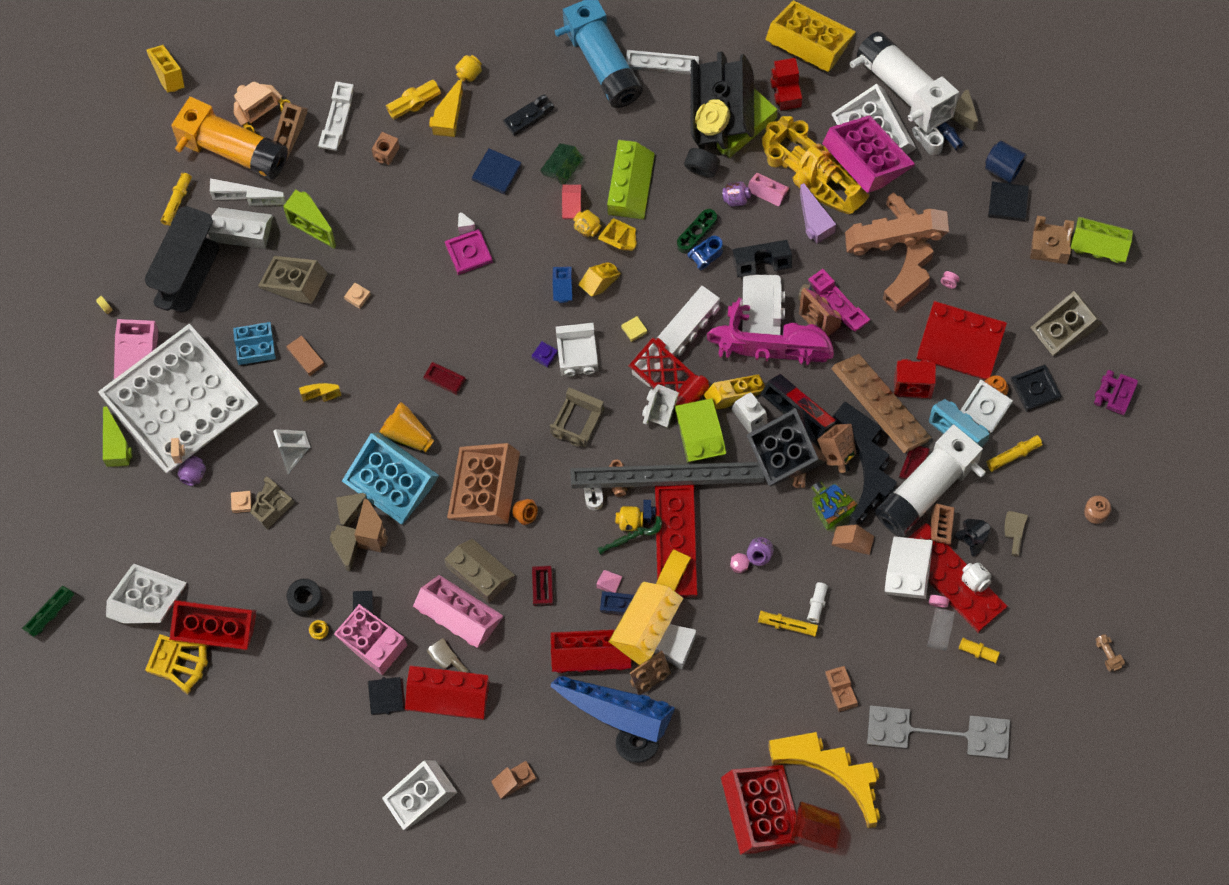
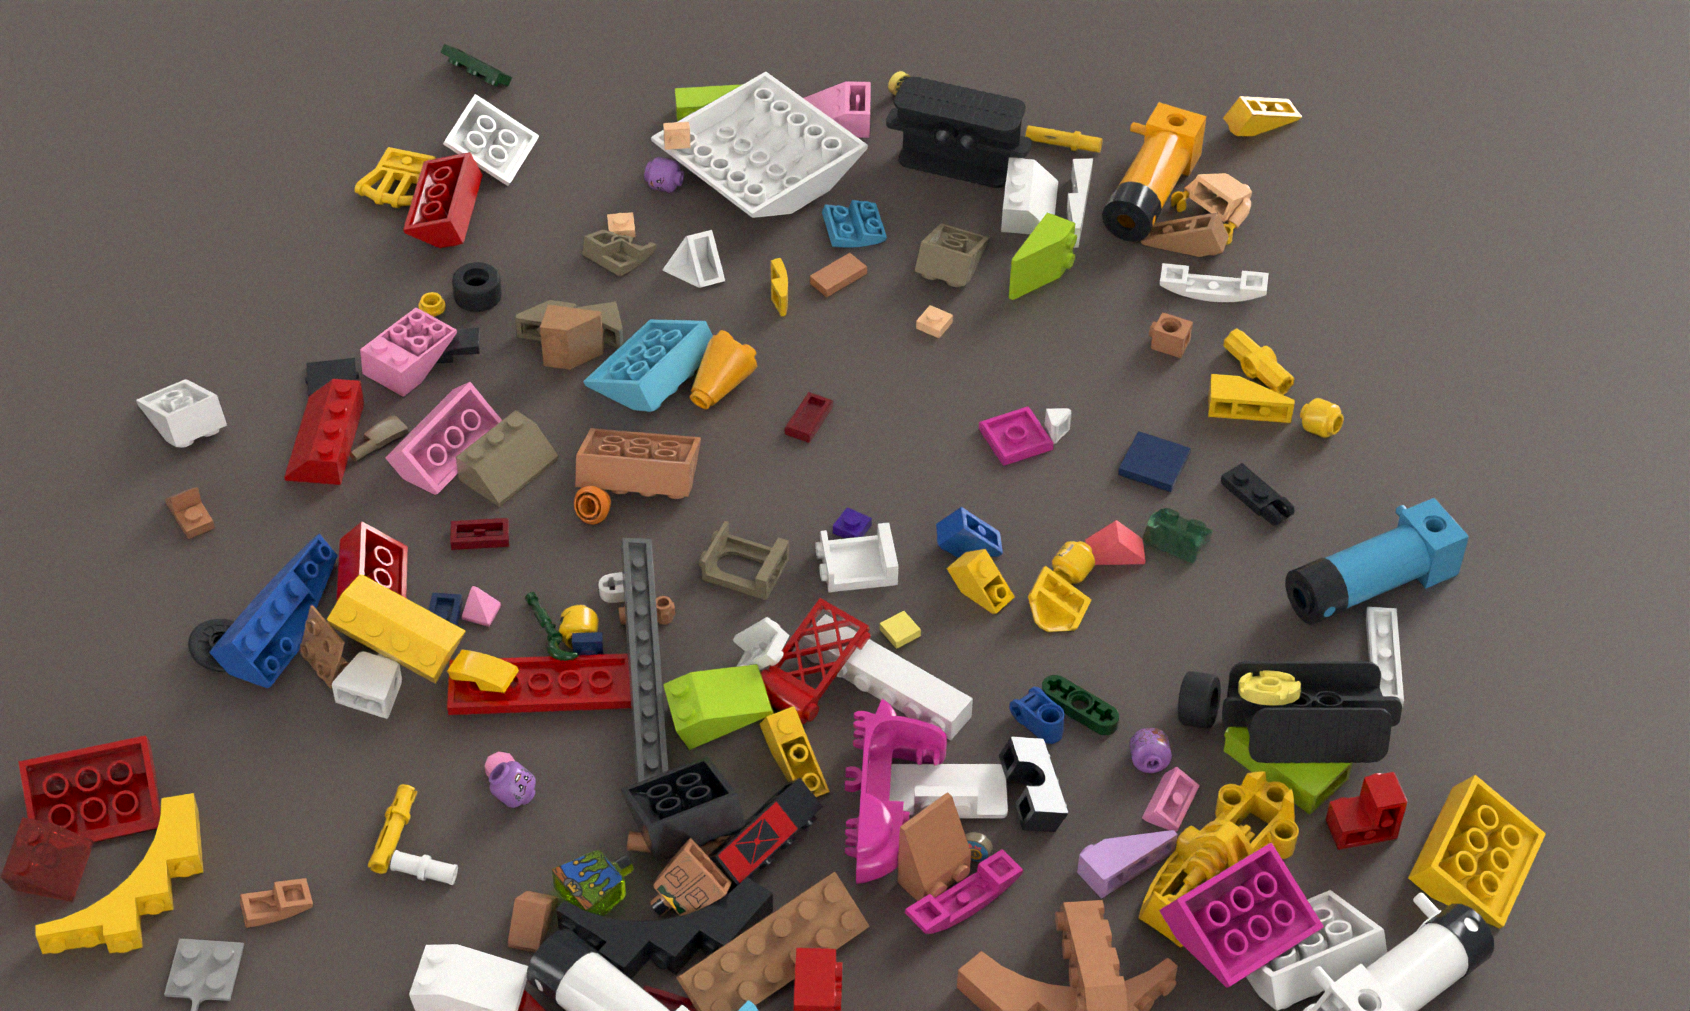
camera: 85 degrees right, 20 degrees down
(630, 180) = (1158, 613): lime slope -> none
(749, 411) = (752, 767): white torso -> none

